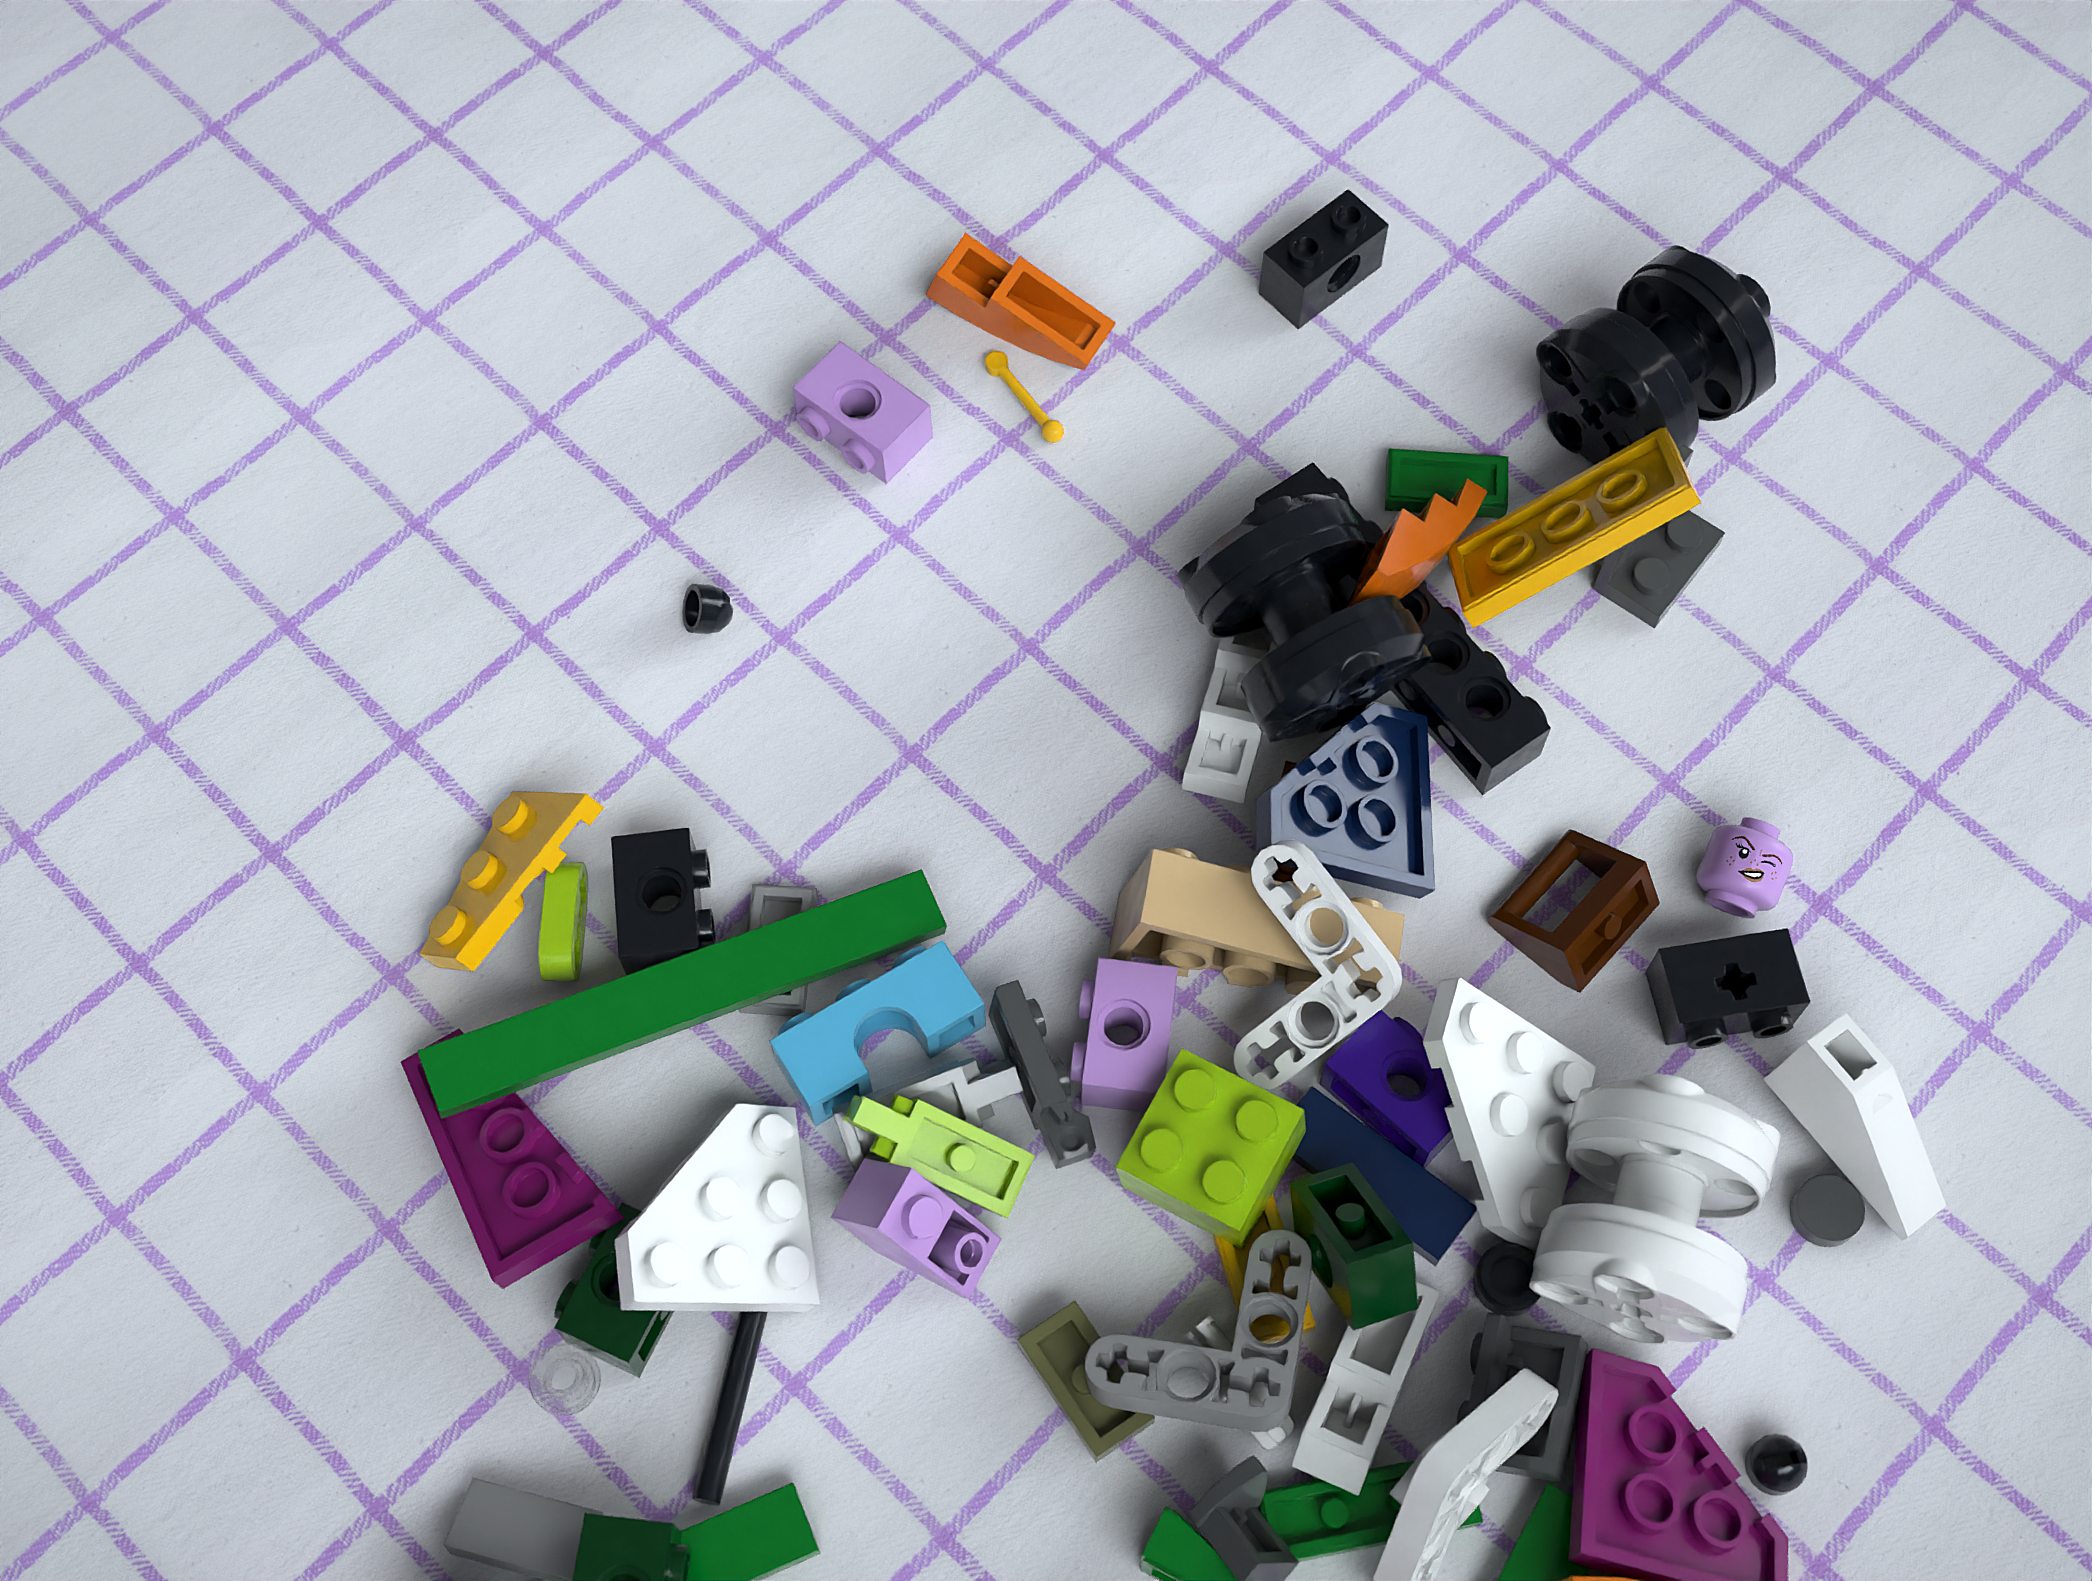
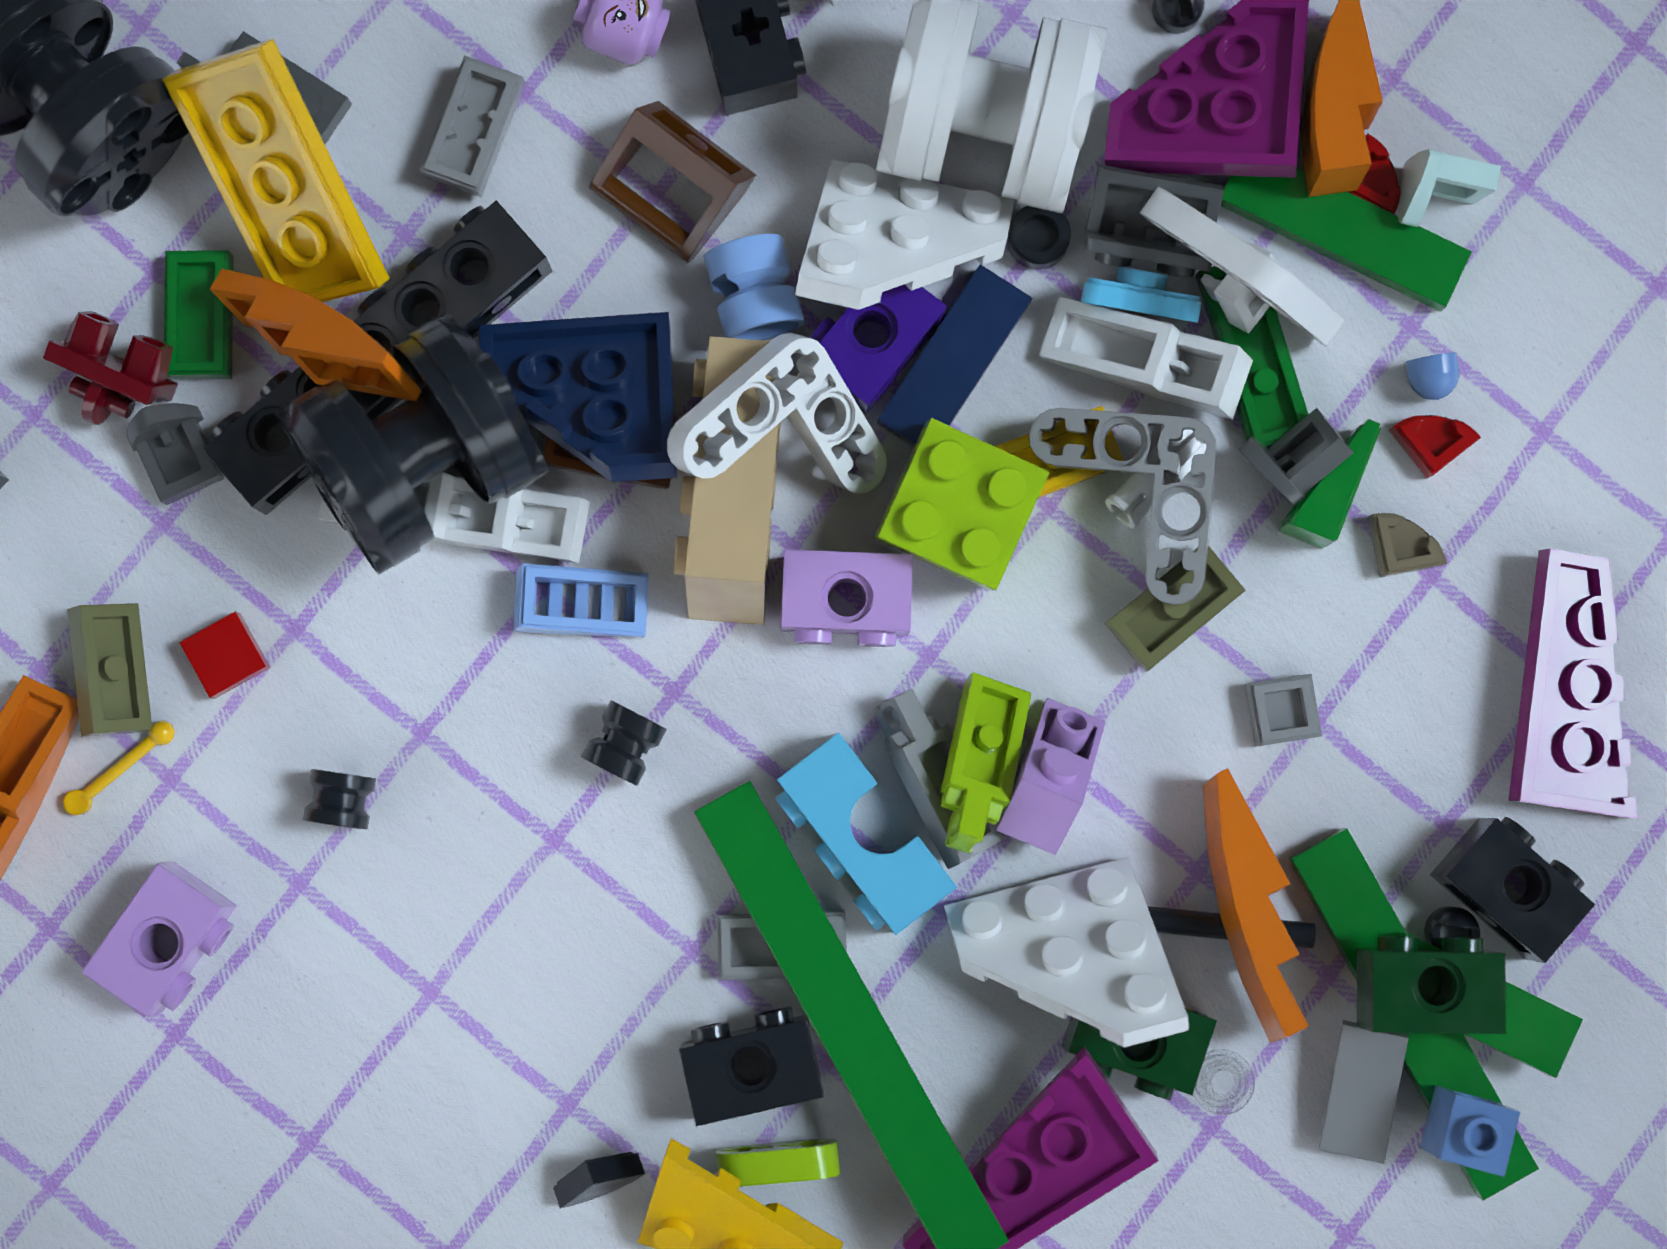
camera: 105 degrees left, 20 degrees up
(579, 759) = (598, 1178): none -> black tile
(706, 609) = (412, 1075): black hinge -> none
(774, 1416) = (1243, 880): none -> orange slope
(959, 1497) = (1283, 710): none -> light grey tile
(972, 563) = (339, 799): none -> black wheel
(1000, 814) = (624, 742): none -> black wheel
(1044, 1080) = (896, 672): dark grey hinge -> none
(1114, 387) = (109, 669): none -> olive plate
(1119, 484) = (224, 655): none -> red tile
(1153, 740) = (555, 576): none -> light blue slope
(1328, 443) = (172, 451): none -> dark grey tile
(1355, 1246) = (1042, 369): dark green brick -> none
(1386, 403) = (88, 354): none -> dark red hips
(1440, 1368) = (1141, 293): none -> medium azure piece
(1472, 953) = (752, 281): none -> light blue wheel
(1630, 725) = (472, 126): none -> light grey plate

